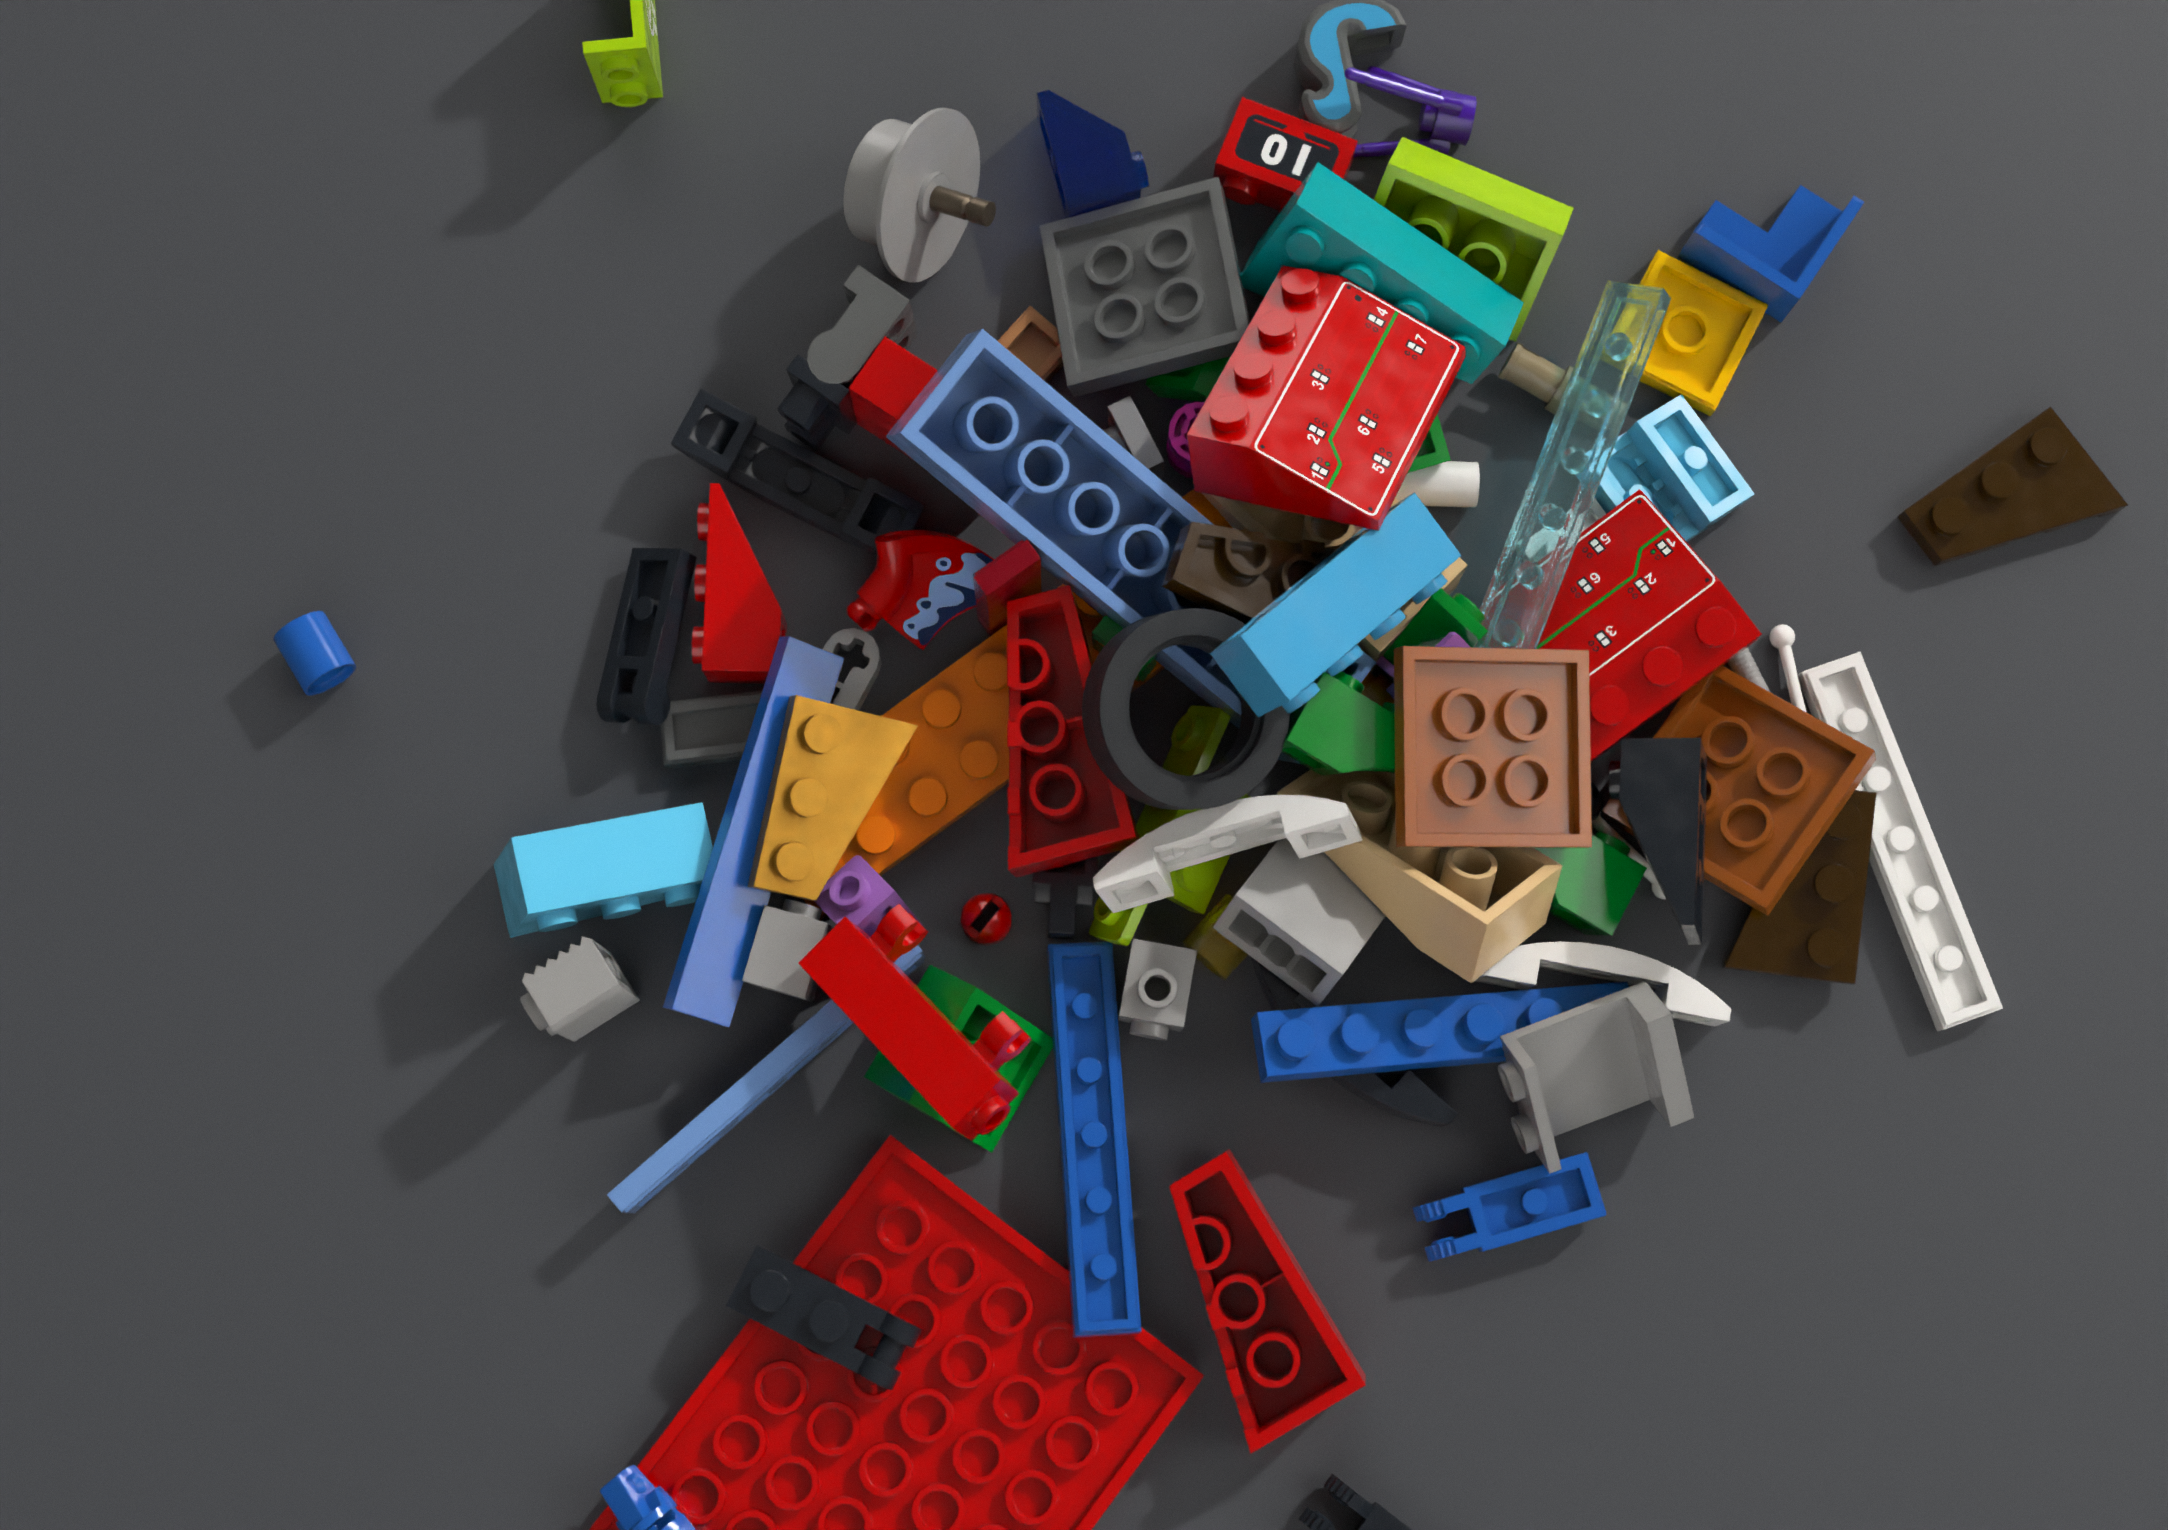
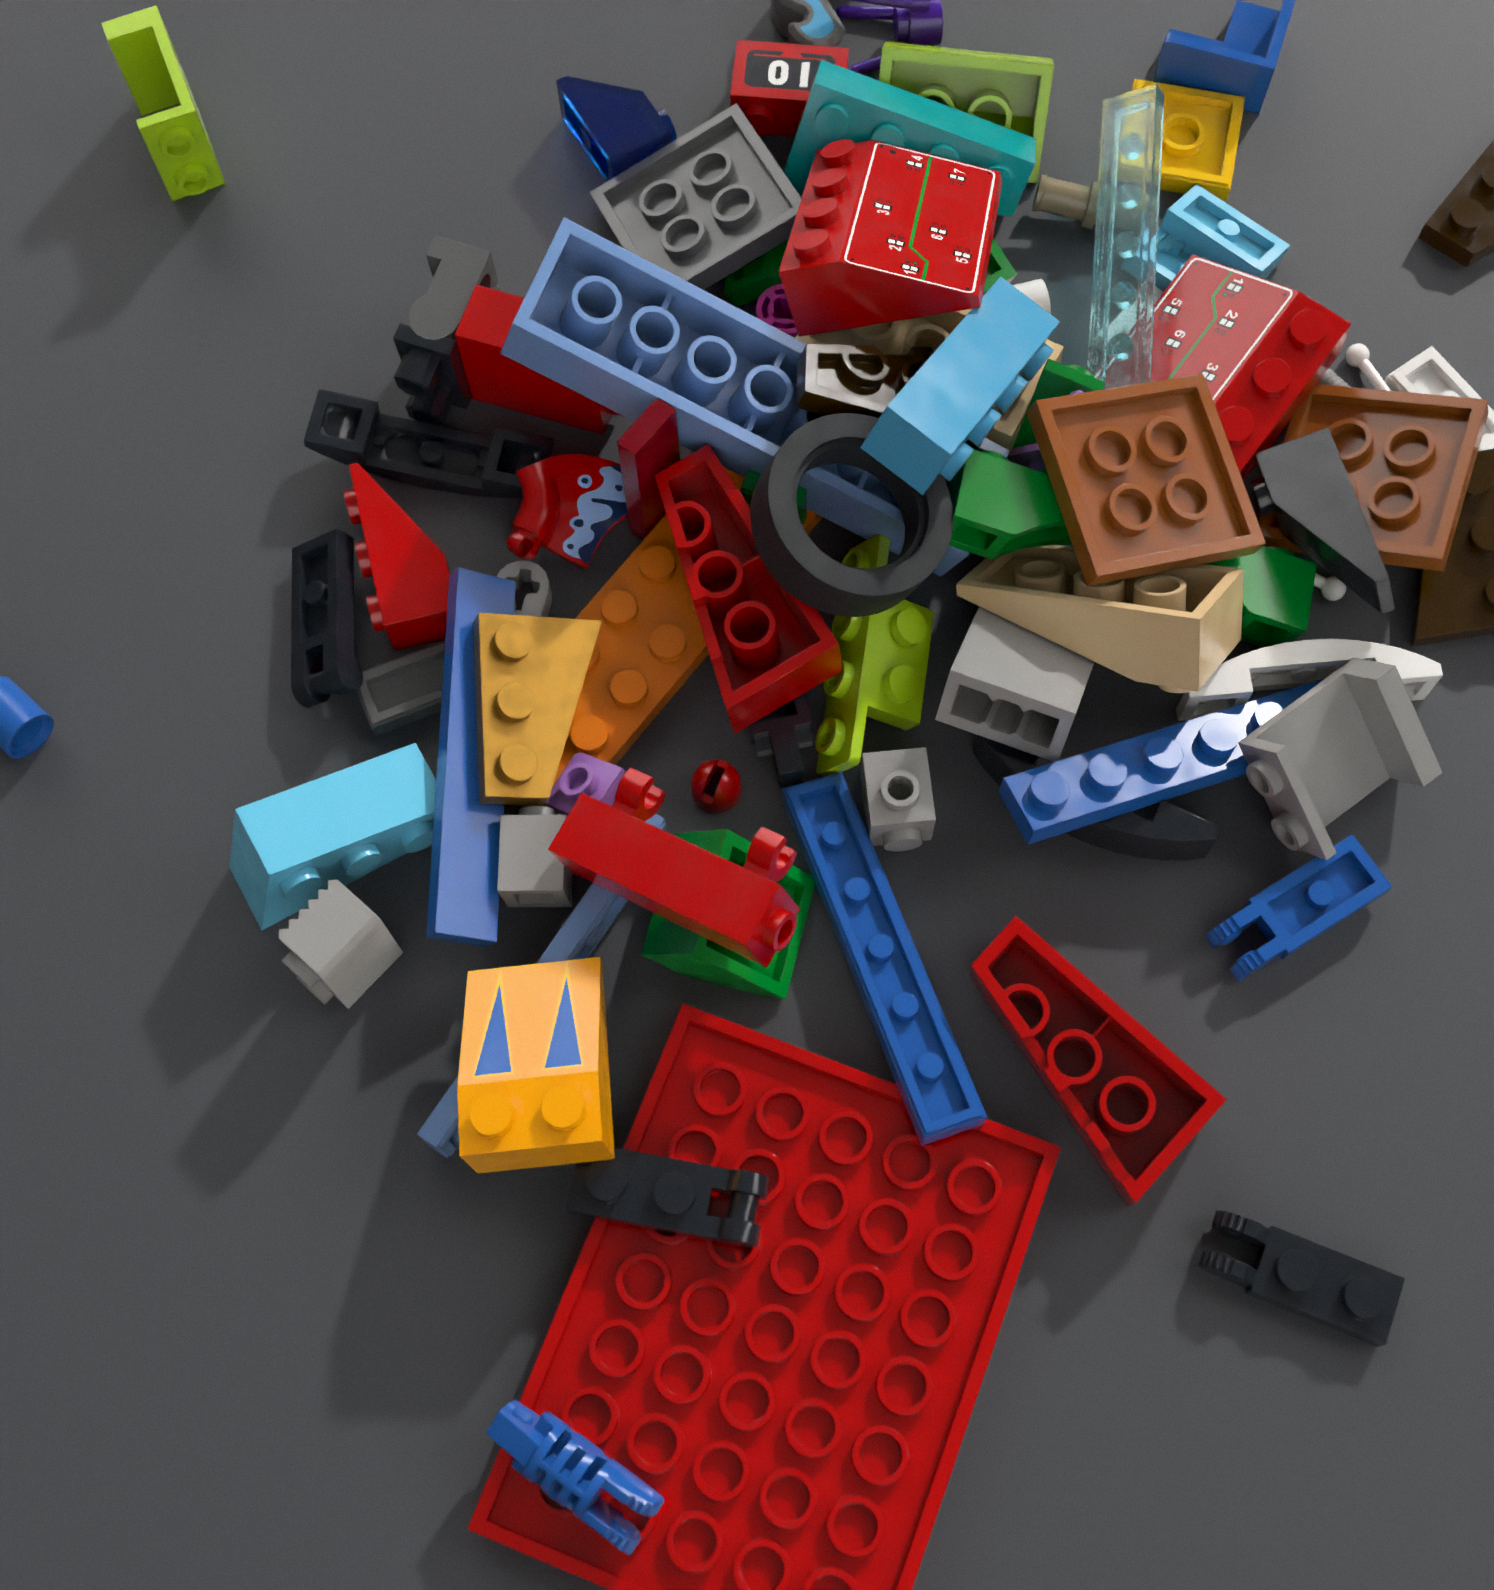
camera: 10 degrees left, 10 degrees down
(732, 1163) = (535, 1067): none -> light orange slope
(916, 191) = (471, 177): light grey piece -> none
(1143, 868) = (917, 622): white slope -> none
(1213, 948) = (945, 744): clear yellow beam -> none

